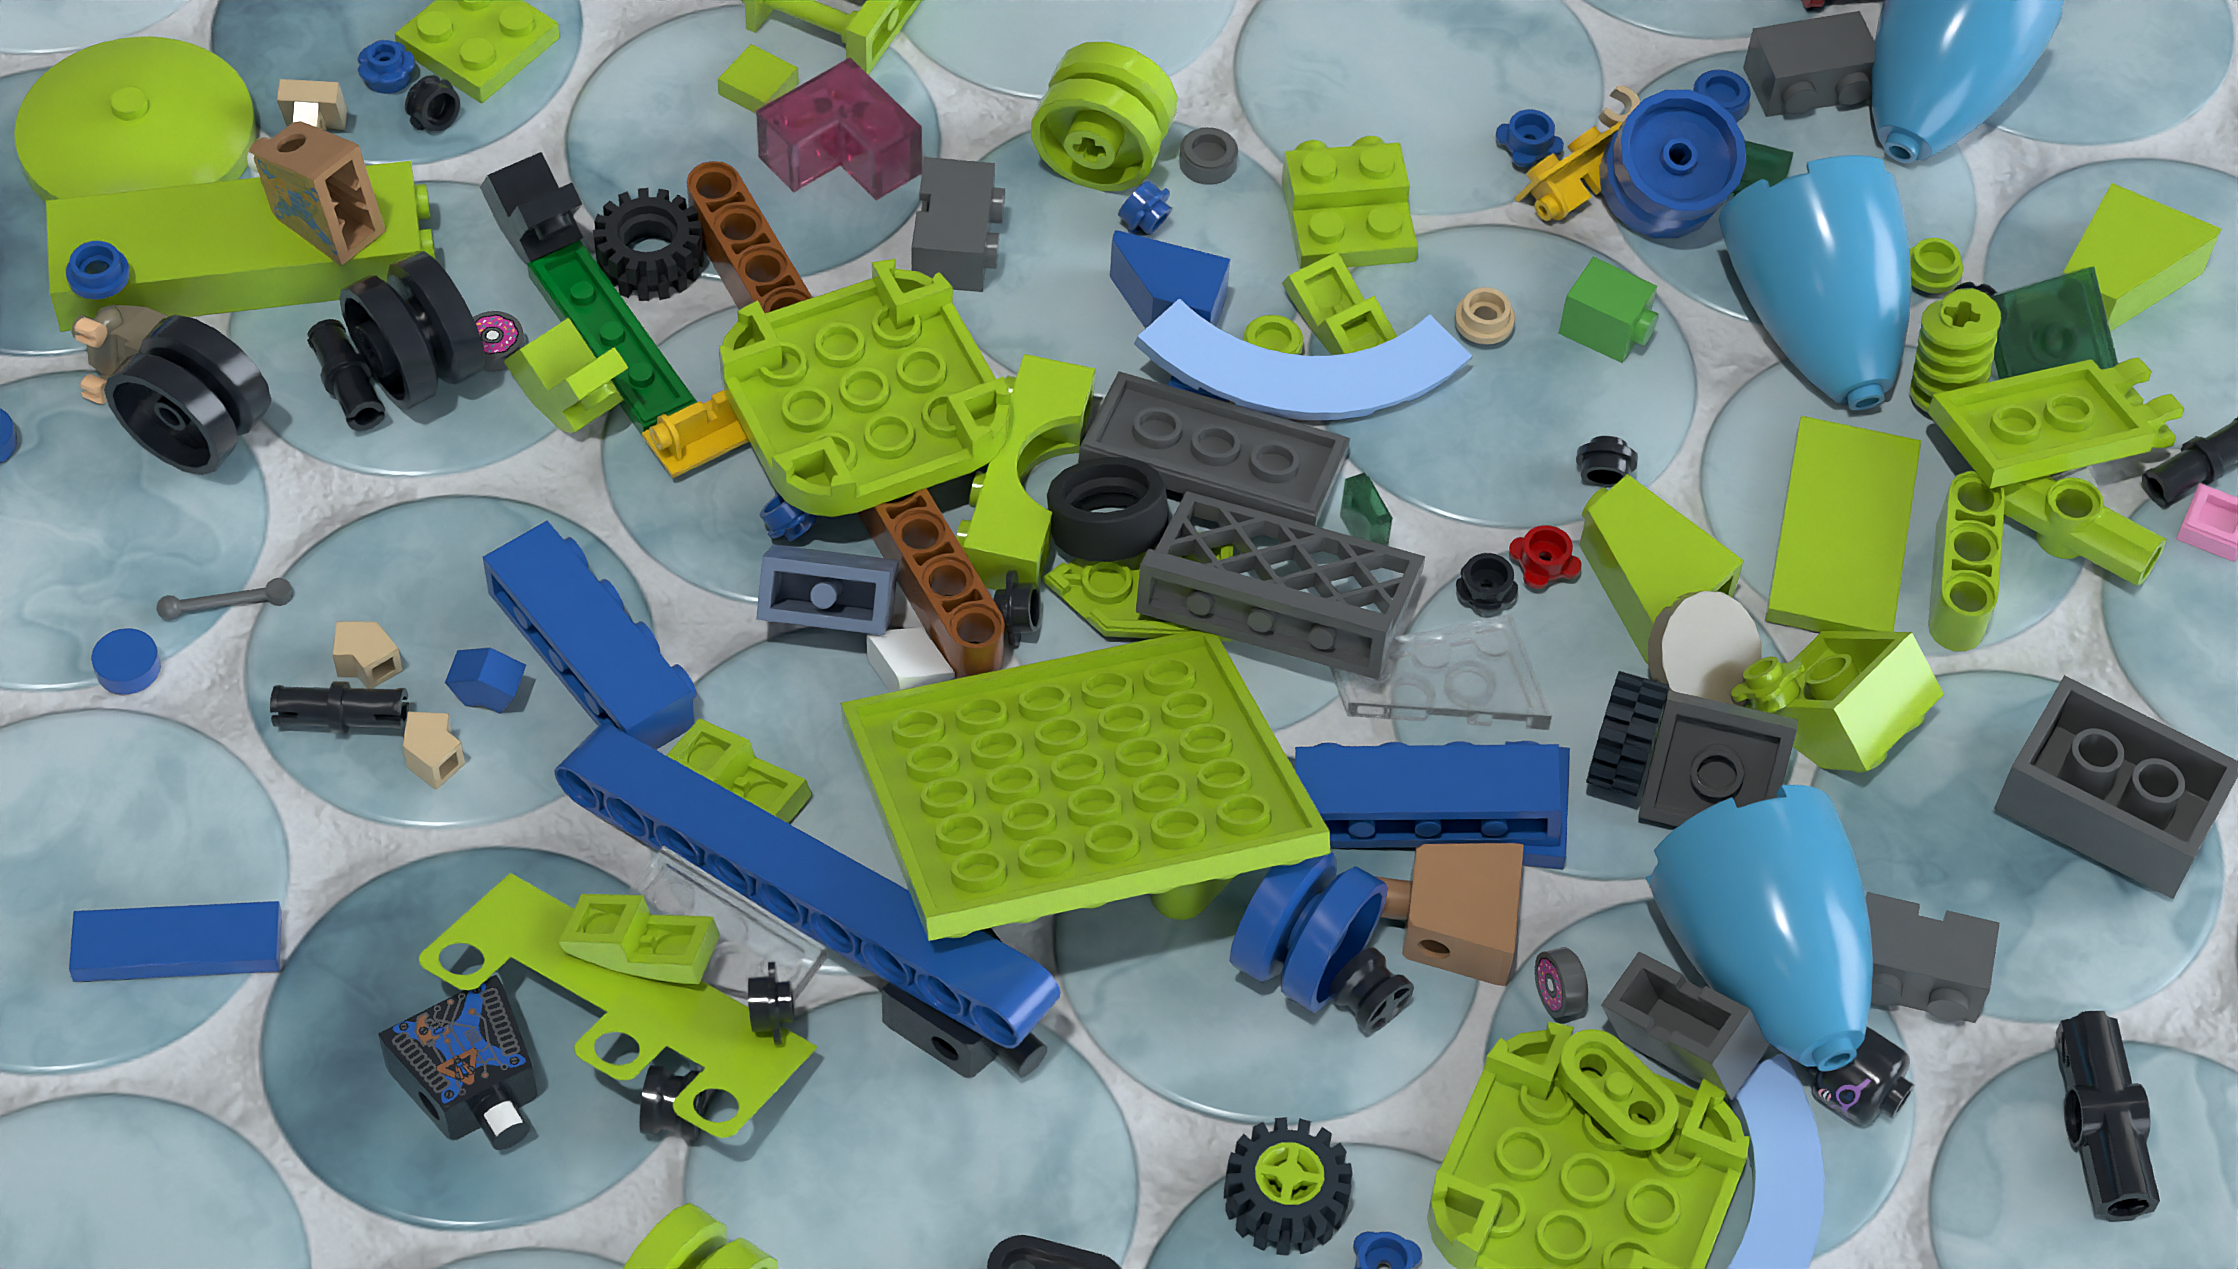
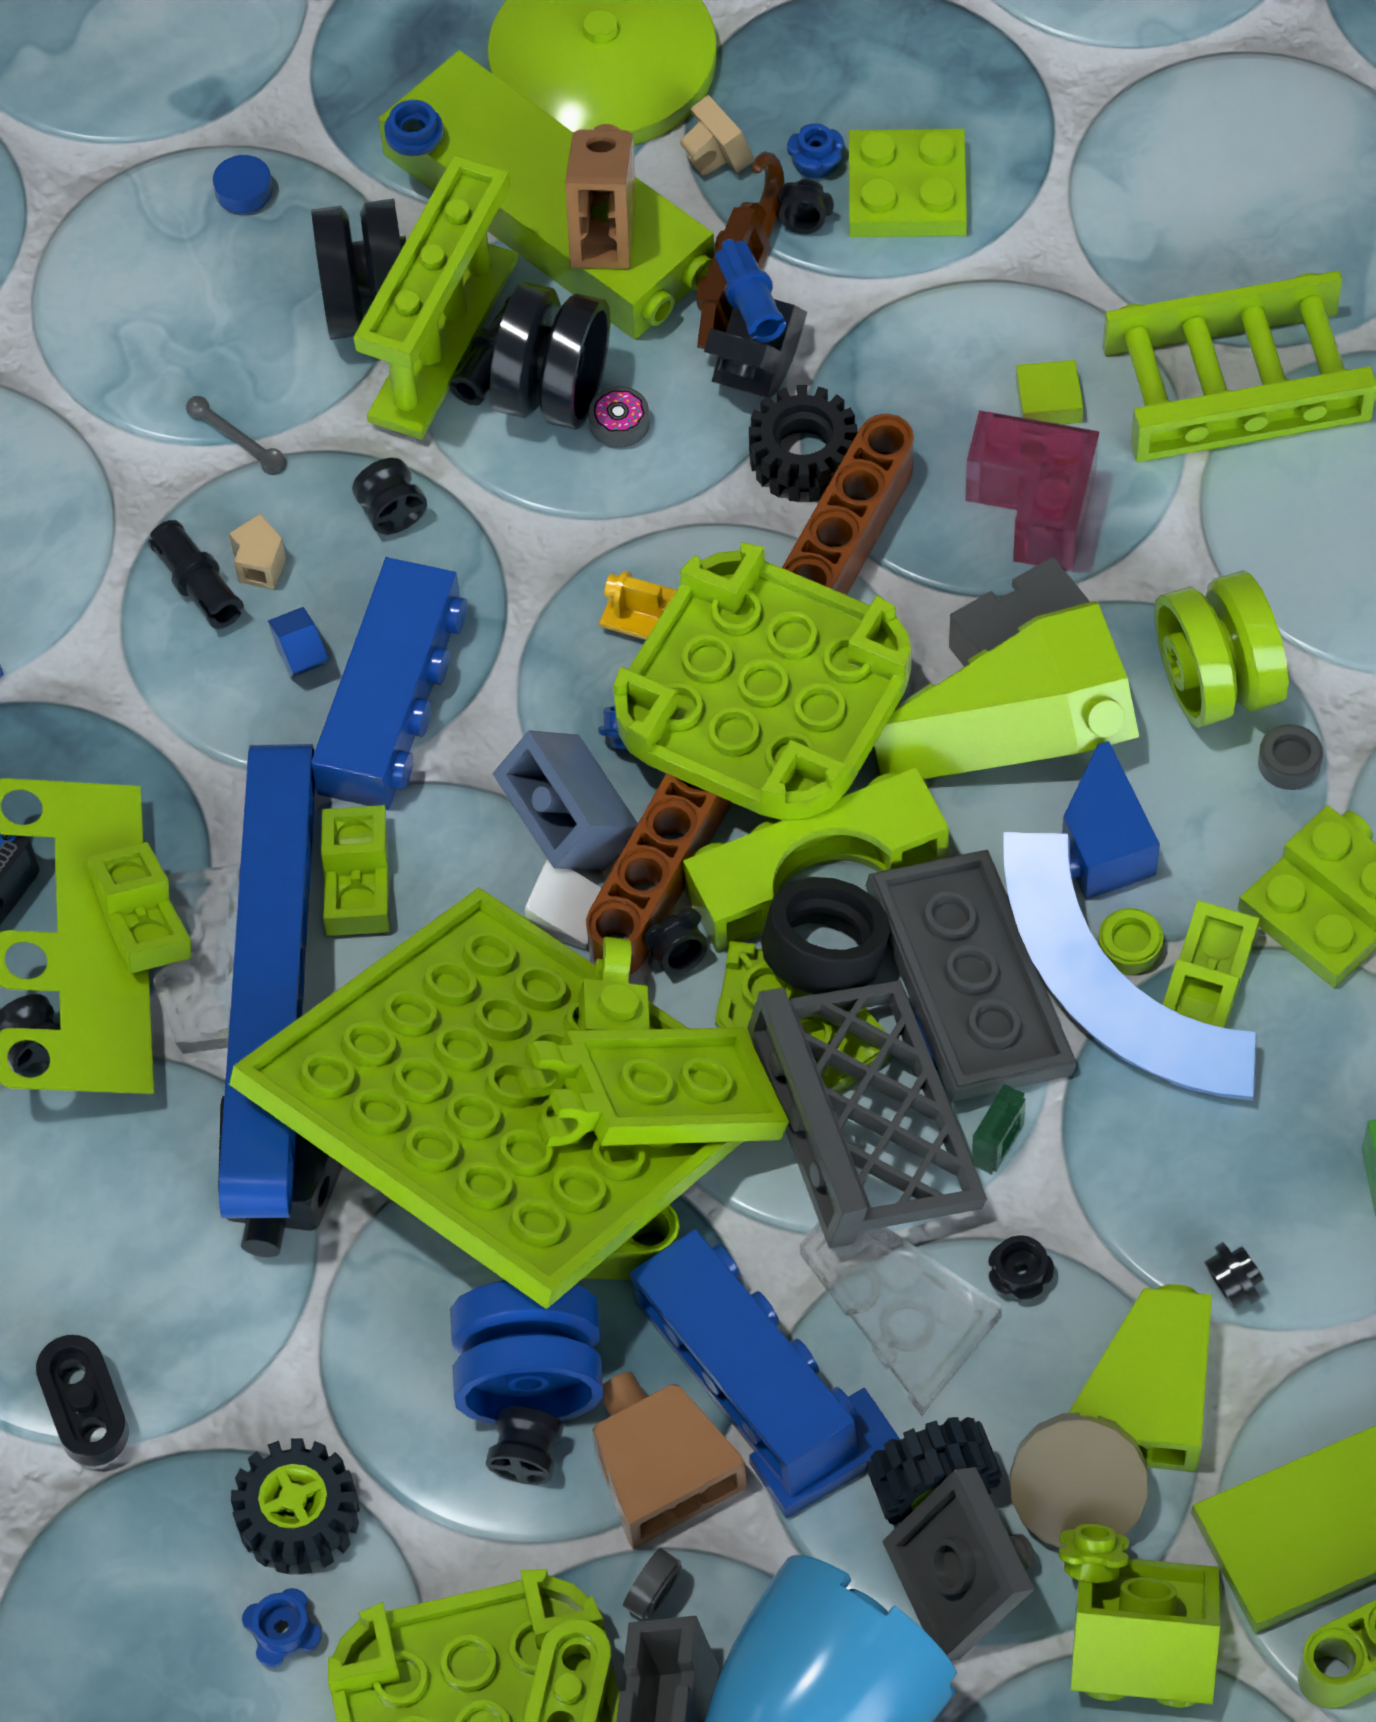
camera: 60 degrees right, 5 degrees up
(110, 339) = (384, 180): dark tan piece -> none
(126, 661) = (127, 418): blue tile -> none
(290, 352) = (436, 296): none -> lime fence
(411, 527) = (389, 496): none -> black wheel
(431, 747) = (212, 656): tan piece -> none
(432, 166) = (752, 224): none -> reddish brown plate
(505, 162) = (750, 291): none -> blue axle
(566, 377) = (615, 486): lime brick -> none
(583, 293) = (695, 486): green tile -> none
(770, 1003) = (146, 1031): black plate -> none
(1033, 253) = (1027, 700): none -> lime wedge
(1052, 675) = (609, 998): none -> lime plate
(1145, 208) = (1178, 750): blue plate -> none
(1163, 682) = (654, 1087): none -> lime tile
(1485, 316) = (1314, 1063): tan plate -> none
(1549, 543) = (1092, 1276): red plate -> none

